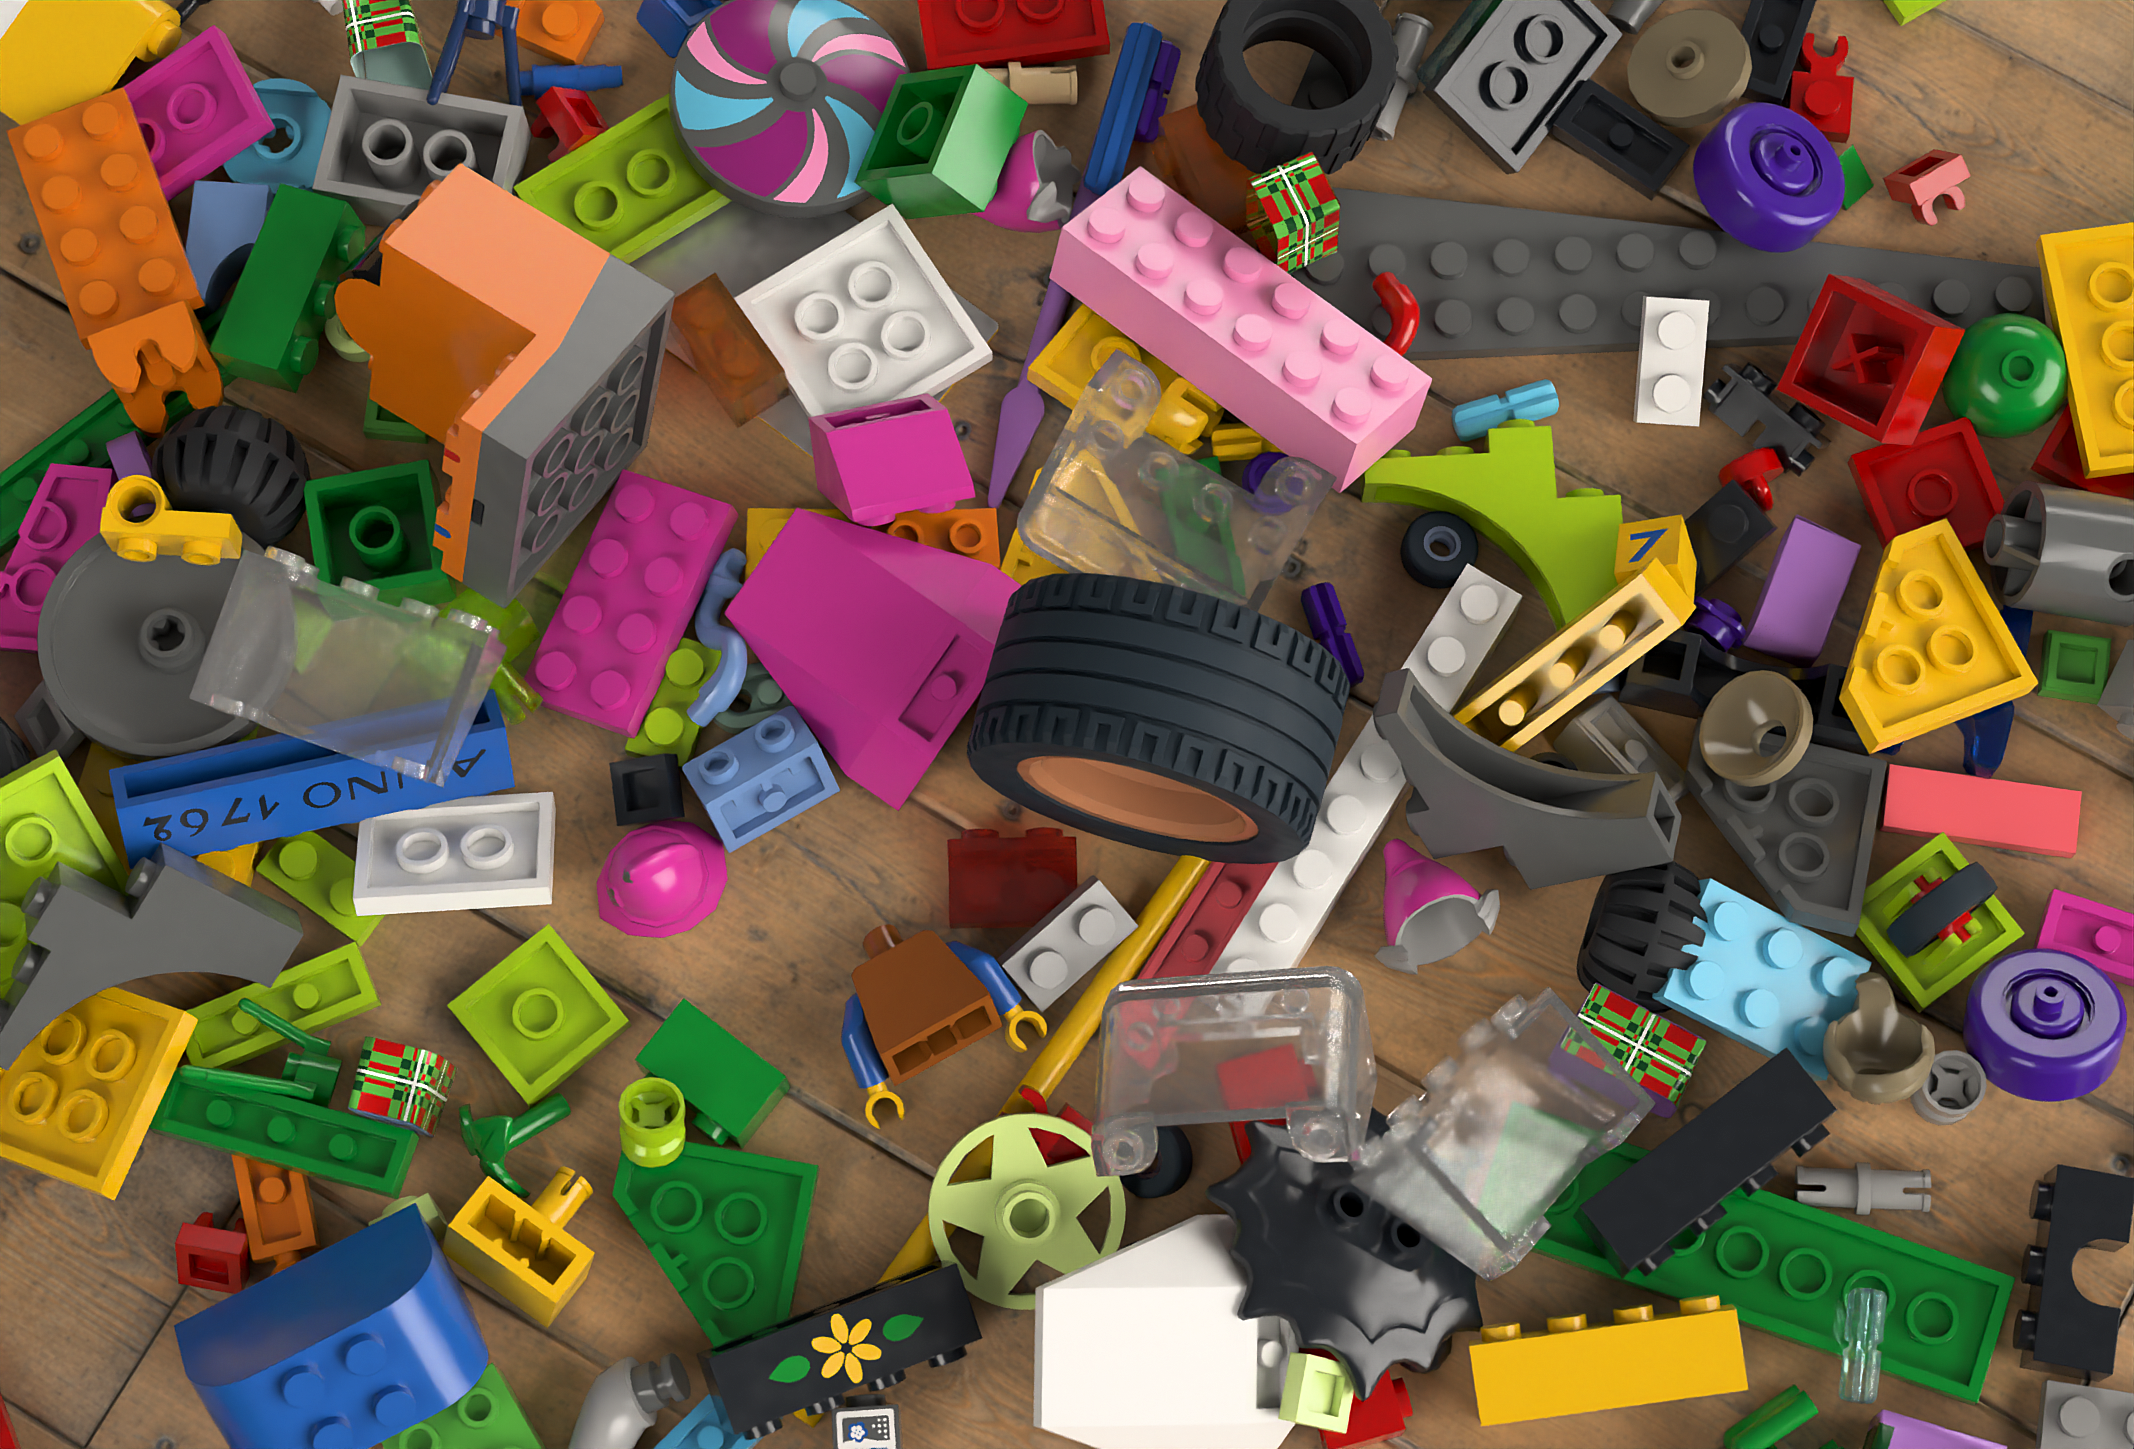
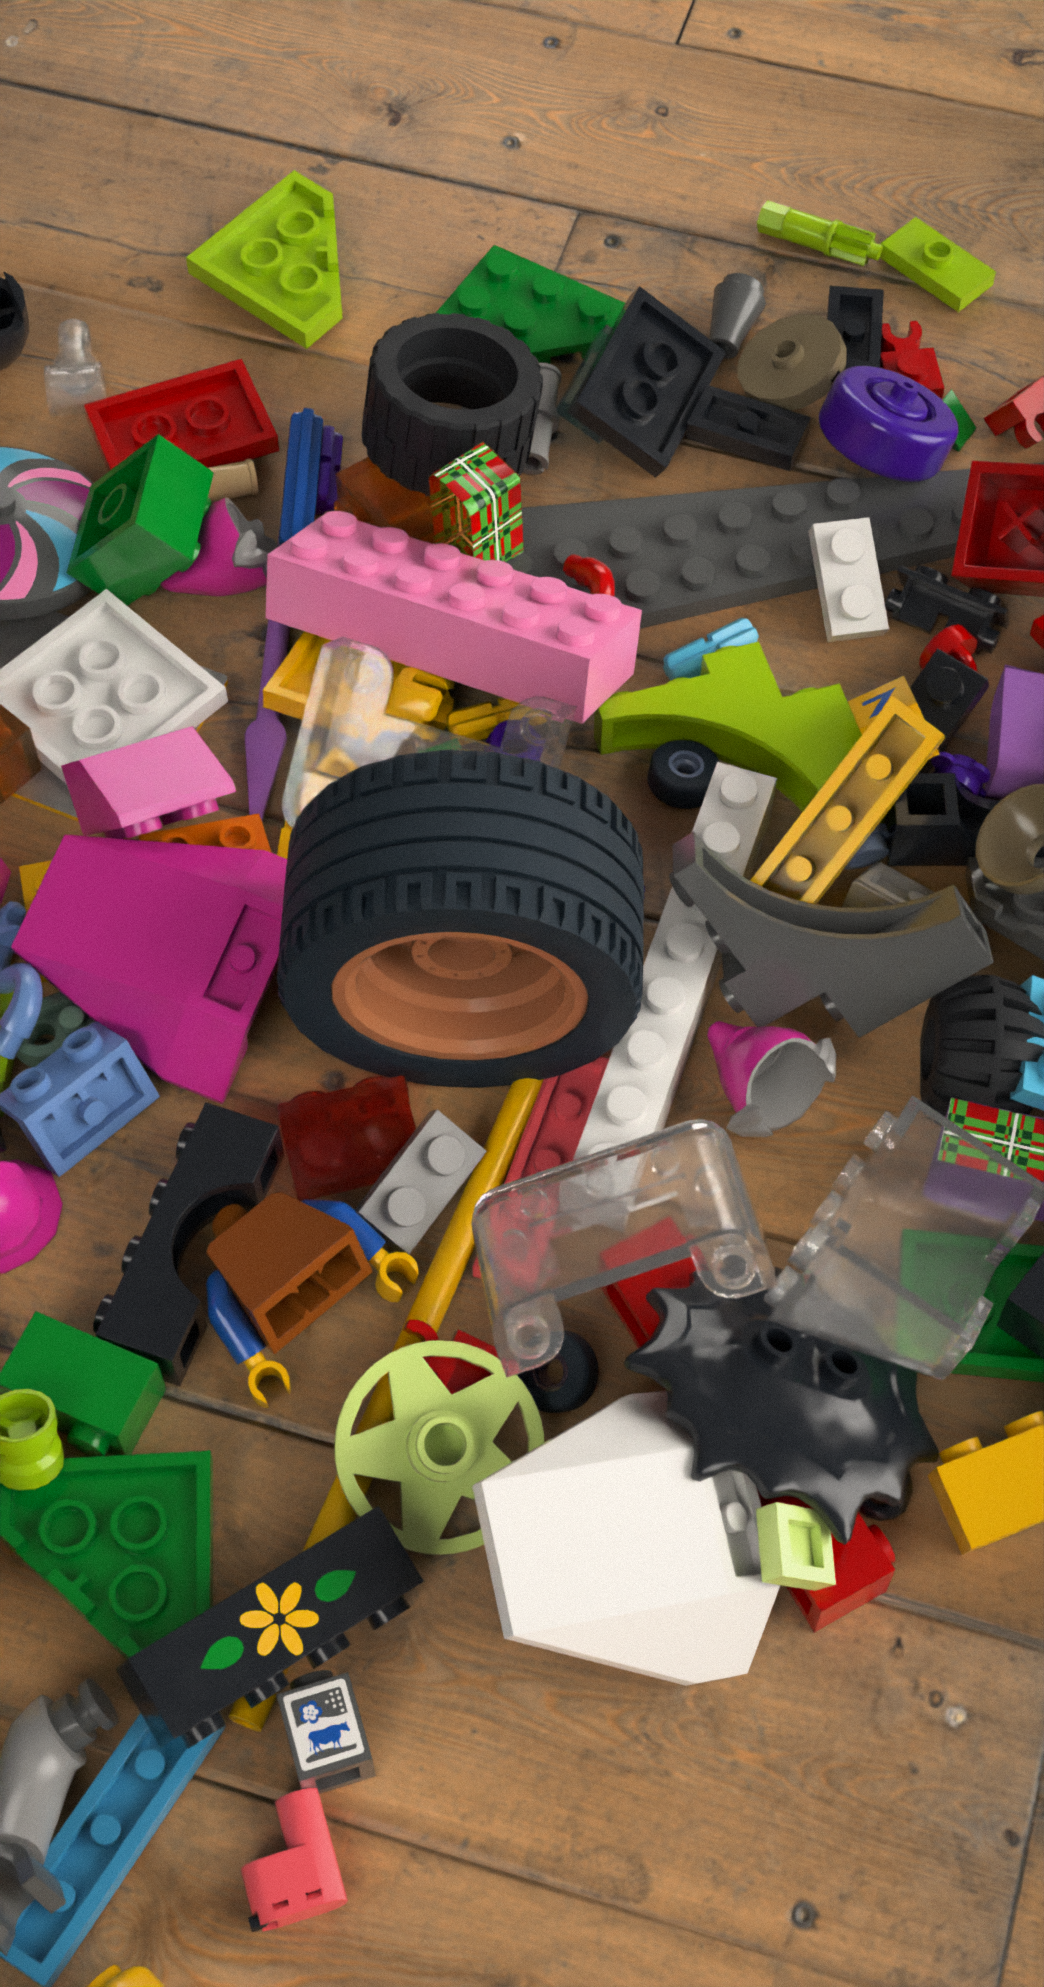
camera: 15 degrees left, 15 degrees down
(884, 884) = (219, 1164): none -> black arch

